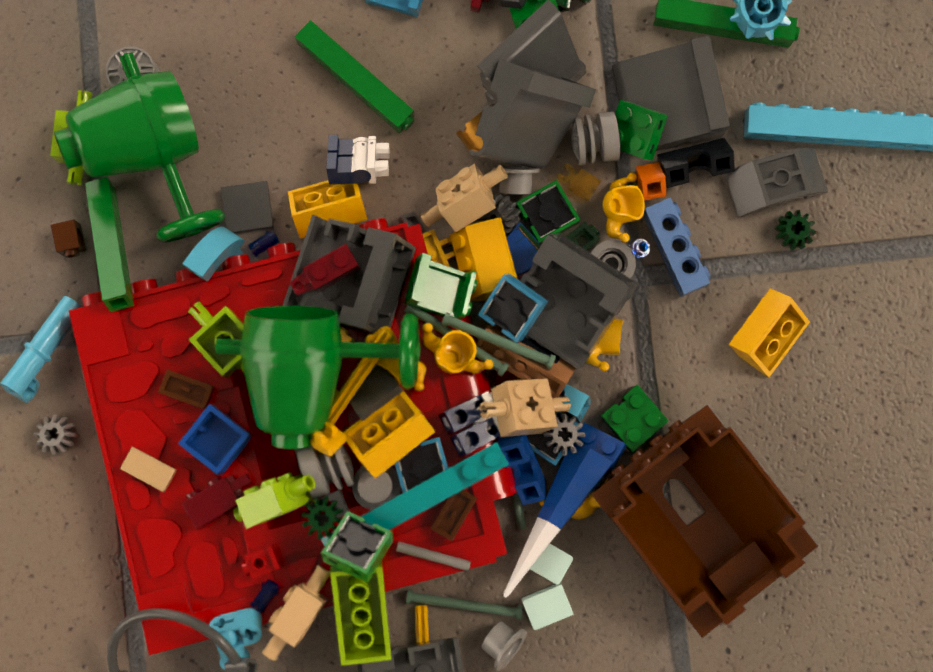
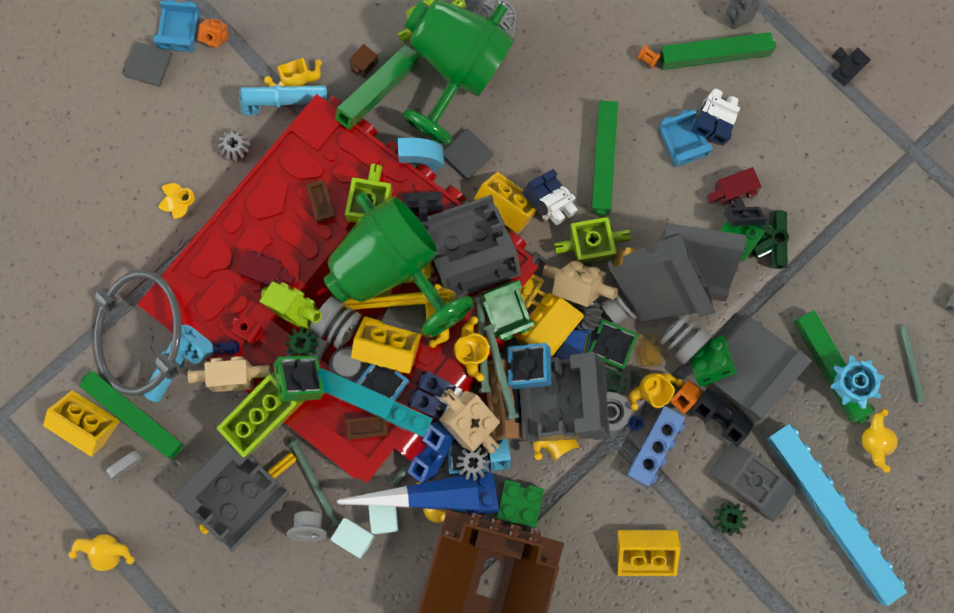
camera: 50 degrees right, 5 degrees down
(28, 316) = (296, 73): none -> yellow piece
(64, 537) = (174, 200): none -> yellow plate
(148, 469) = (253, 216): tan tile -> none
(215, 439) = (302, 242): blue piece -> none
(266, 241) = (454, 181): clear blue pin -> none
(269, 288) = (423, 203): none -> black plate
(325, 271) = (460, 229): dark red hinge -> none
(328, 439) = (353, 309): yellow tile -> none
(423, 140) = (597, 230): none -> lime brick
(433, 556) = (330, 436): light grey bar -> none
(595, 212) = (637, 375): none -> flat silver slope
(826, 34) = (879, 440): none -> yellow piece

